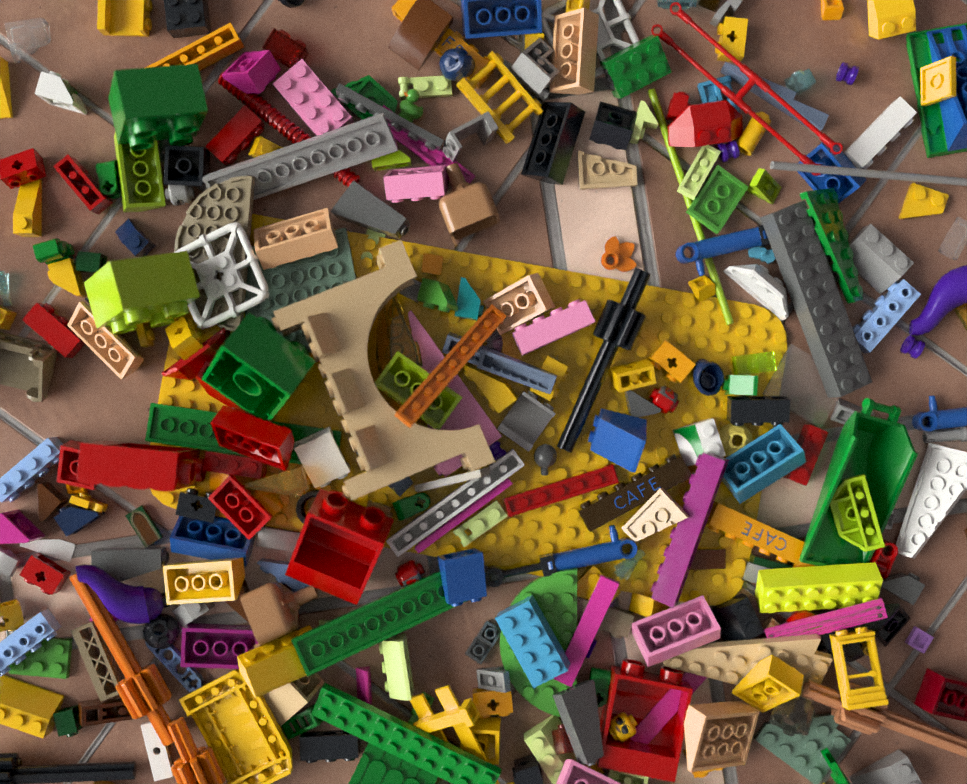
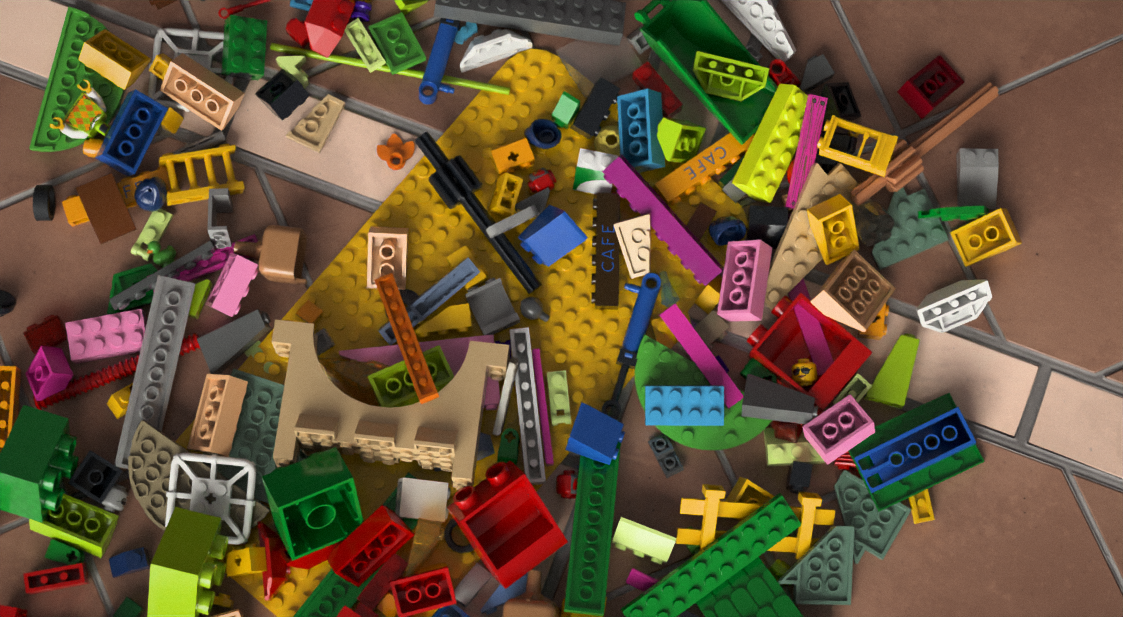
camera: 65 degrees left, 10 degrees down
(236, 136) = (95, 420): red brick -> none
(436, 294) = (338, 321): bright green slope -> none
(468, 302) = (360, 299): teal slope -> none
(482, 701) = (727, 464): light orange brick -> none
(493, 679) = (702, 463): light grey slope -> none
(534, 66) = (194, 130): light grey brick -> none
(553, 142) = (266, 152): black slope -> none
(556, 326) = (425, 239): bright pink brick -> none
(561, 490) = (570, 313): red tile -> none
(611, 396) = (512, 221): none -> light grey beam
(702, 287) = (465, 97): yellow slope -> none
(713, 588) = (727, 230): none -> dark blue hair
(754, 363) = (554, 88): clear neon green slope -> none
(772, 502) = (679, 139): none -> lime slope
(919, 639) = (869, 85): medium lavender plate -> none

